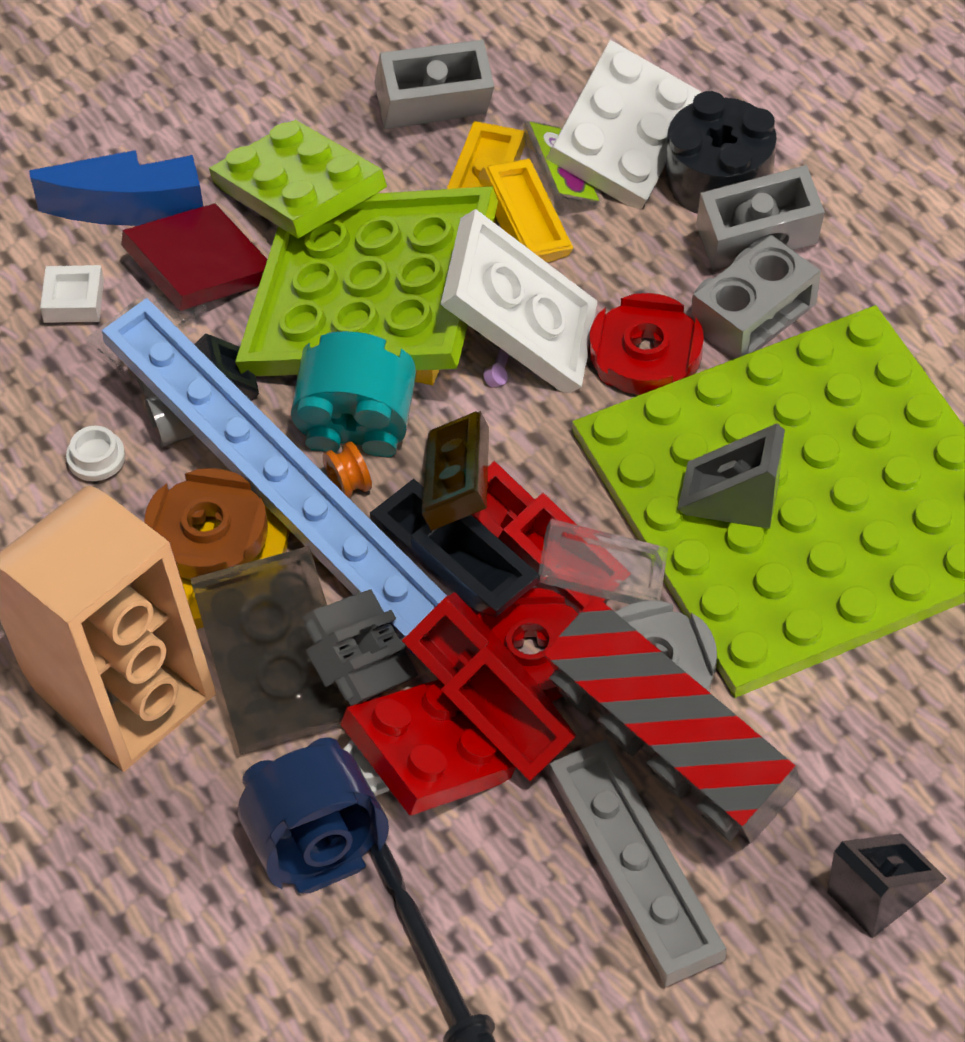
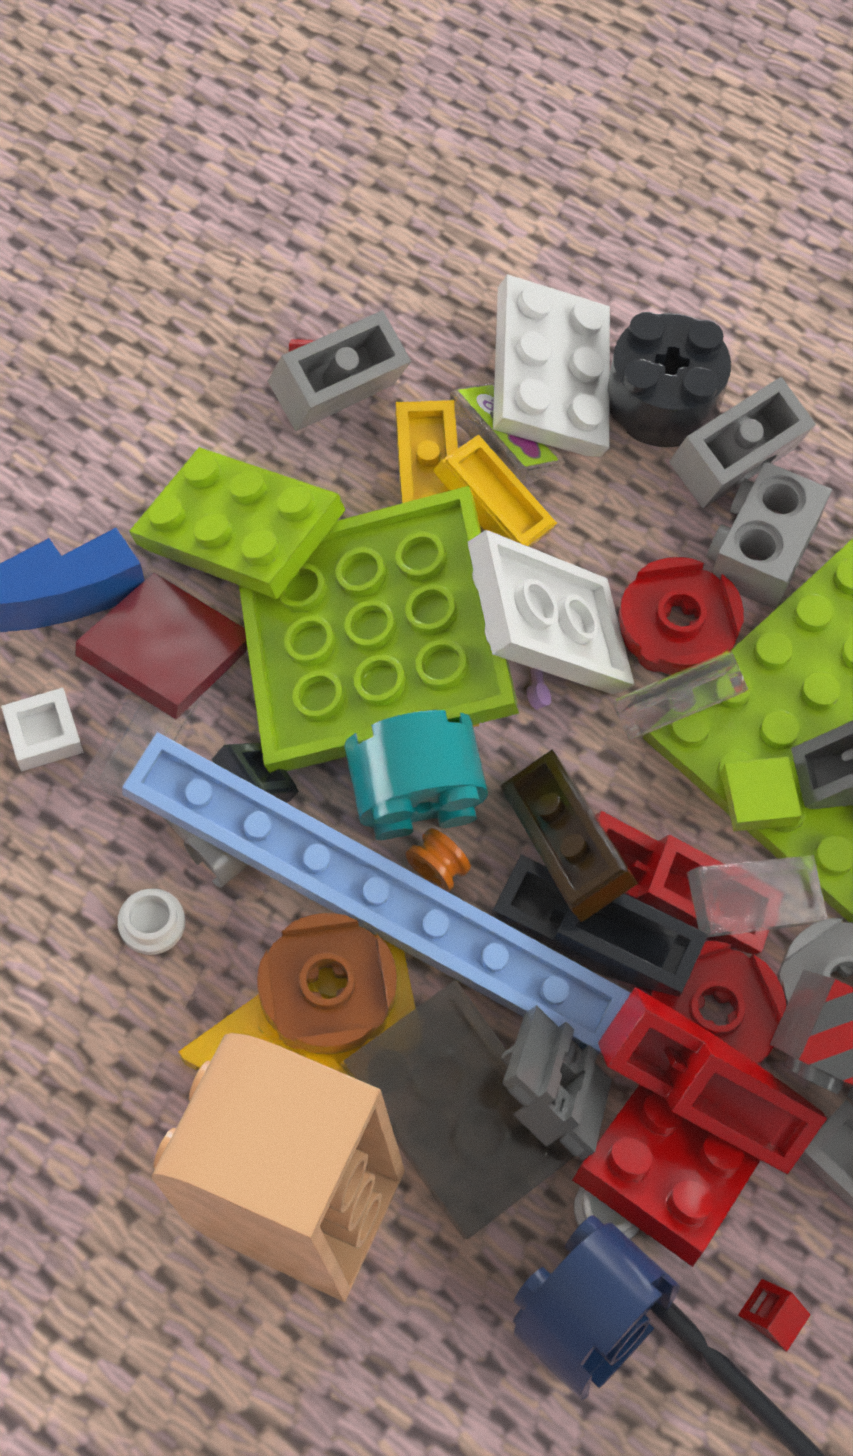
camera: 25 degrees left, 10 degrees up
(477, 891) = (778, 1316): none -> red piece
(606, 391) = (680, 695): none -> clear slope
(642, 487) = (761, 794): none -> lime tile

